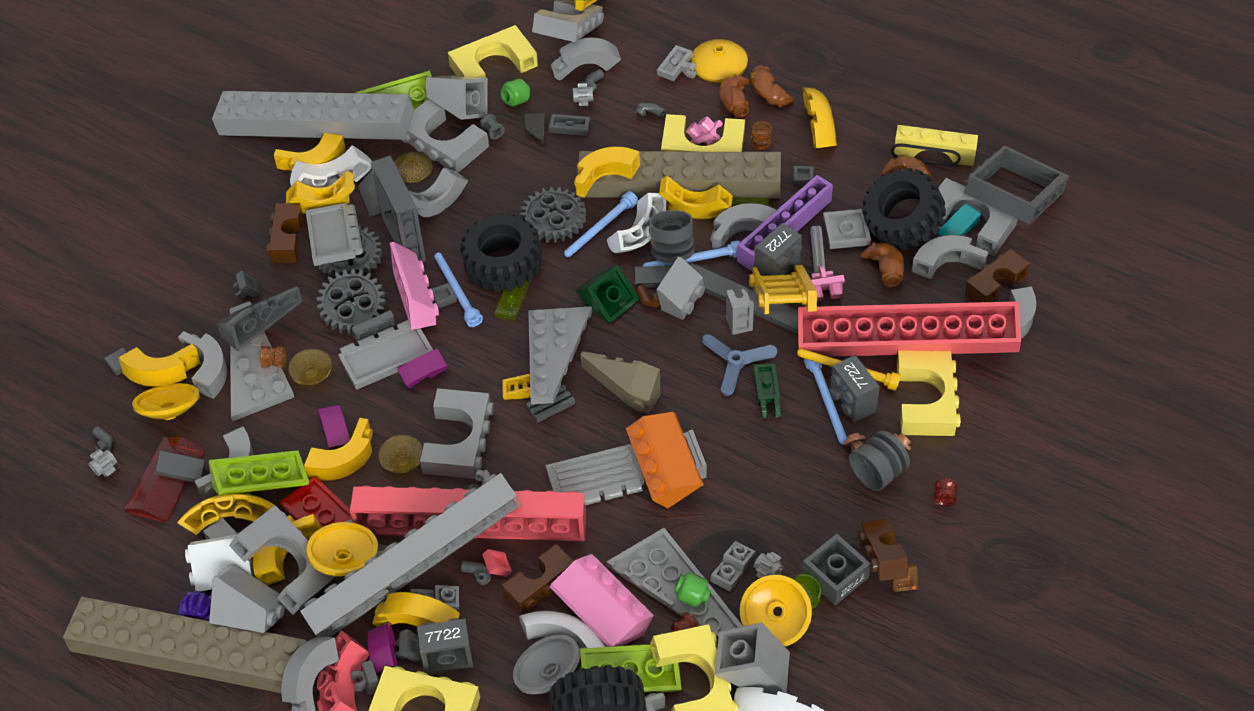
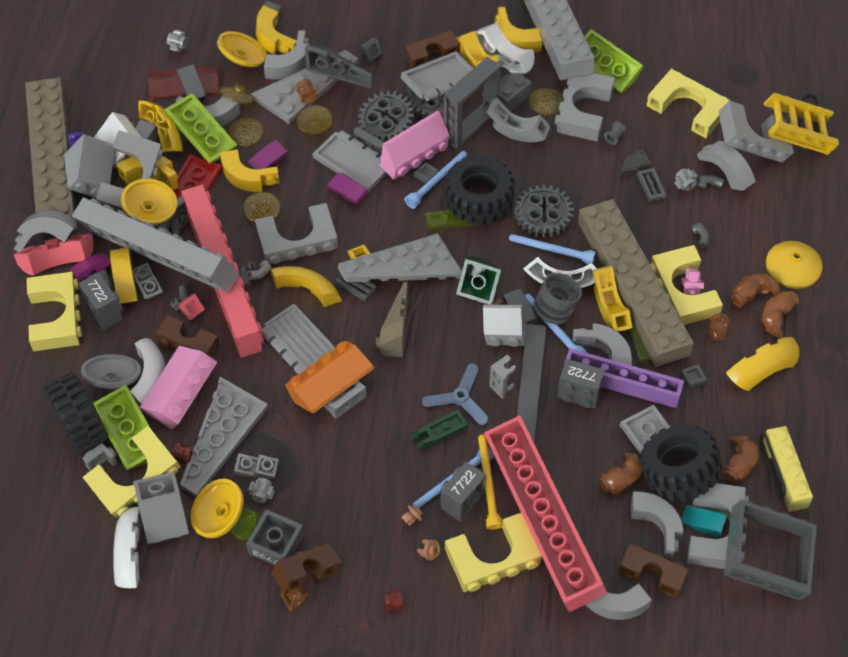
camera: 65 degrees right, 5 degrees up
(105, 439) = (195, 36): dark grey arm -> none
(226, 426) = (237, 94): none -> clear yellow dish
(288, 440) = (246, 131): none -> clear yellow dish
(367, 676) = (64, 266): dark grey tile -> none
(459, 95) = (627, 95): light grey slope -> none
(515, 92) = (660, 133): bright green head -> none
(520, 442) = (297, 276): none -> yellow brick
(604, 162) = (596, 214): yellow arch -> none
(676, 62) = (765, 233): light grey plate -> none
(692, 589) = (211, 441): bright green head -> none
(784, 289) = (537, 414): yellow fence -> none
(817, 247) = (611, 417): light grey axle -> none
(826, 281) = (576, 441): bright pink hips -> none
(879, 460) = (392, 534): dark grey wheel -> none

